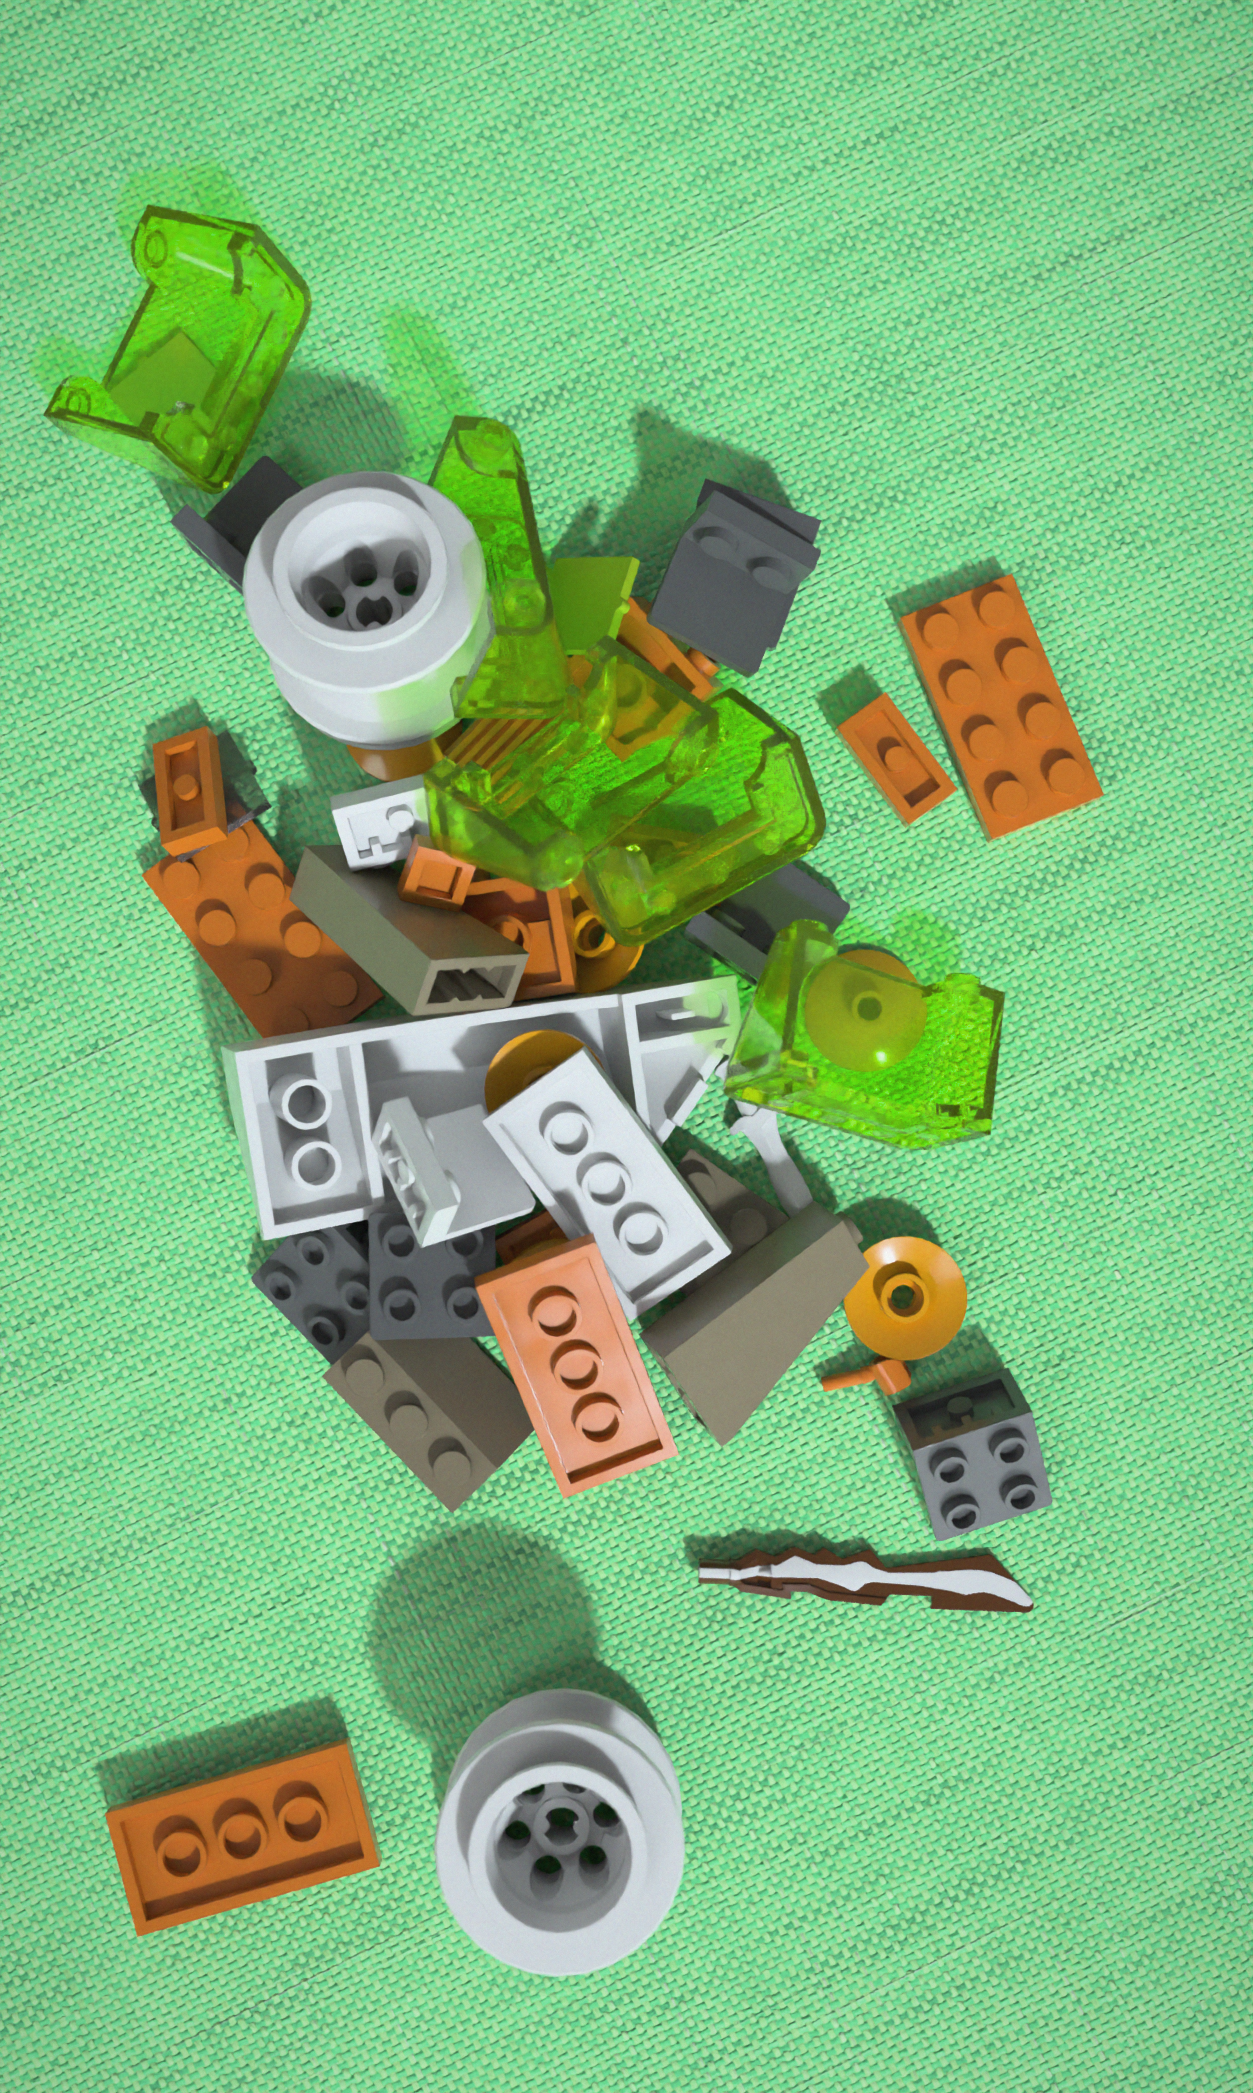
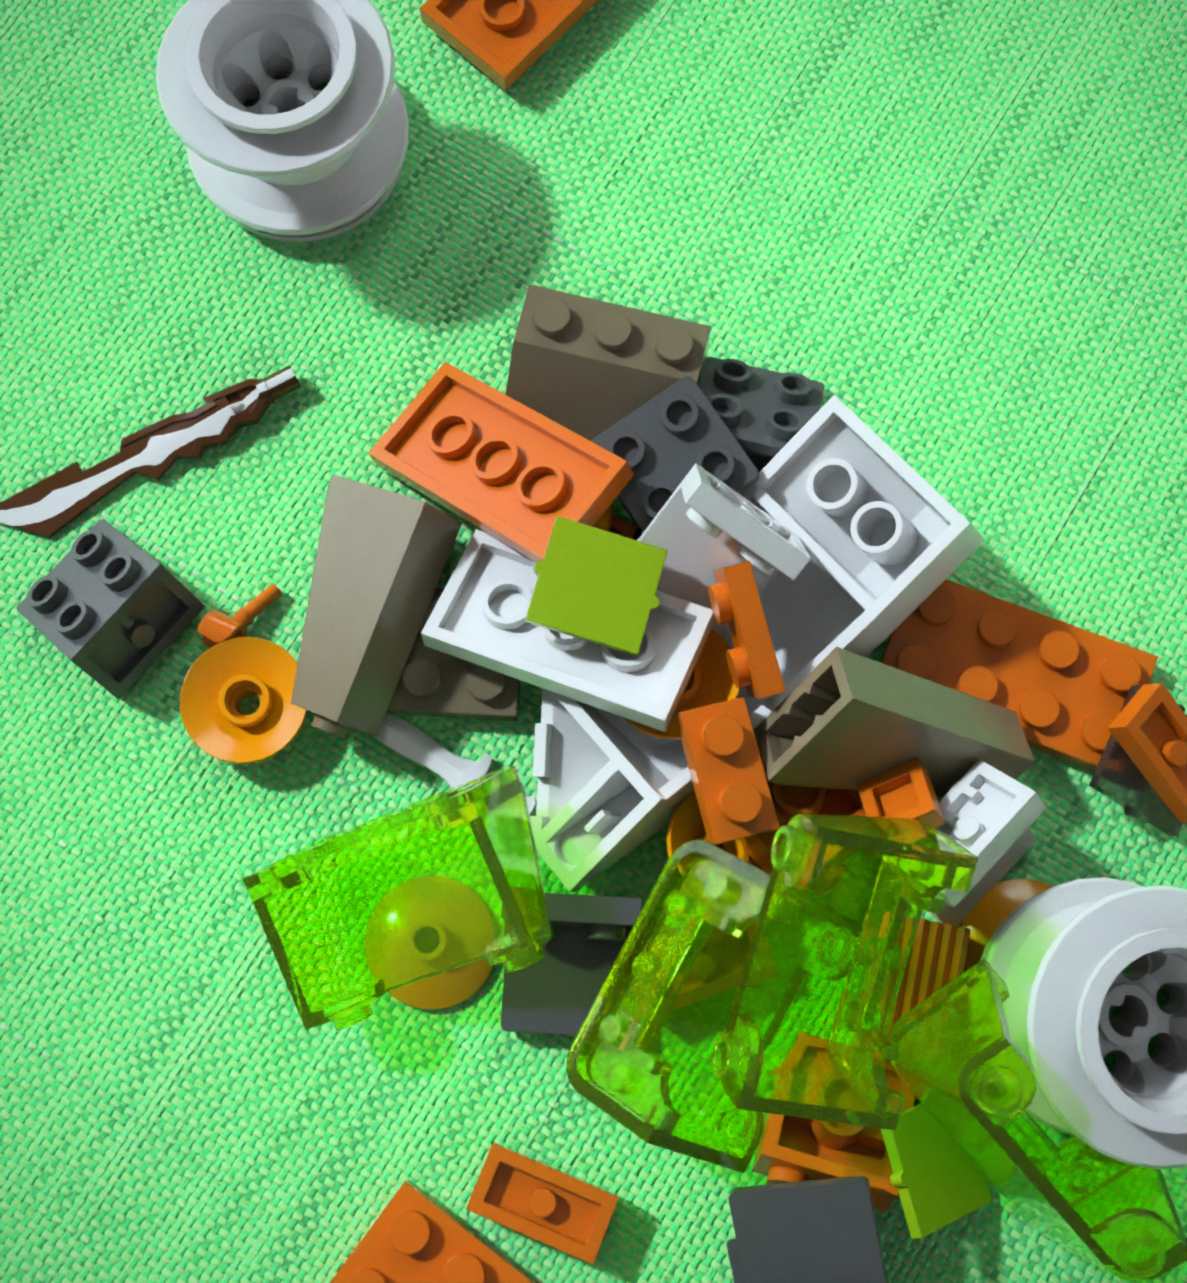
camera: 150 degrees right, 10 degrees down
(476, 1061) = (753, 656): none -> orange plate
(556, 983) = (727, 771): none -> orange plate
(567, 1195) = (596, 585): none -> lime piece

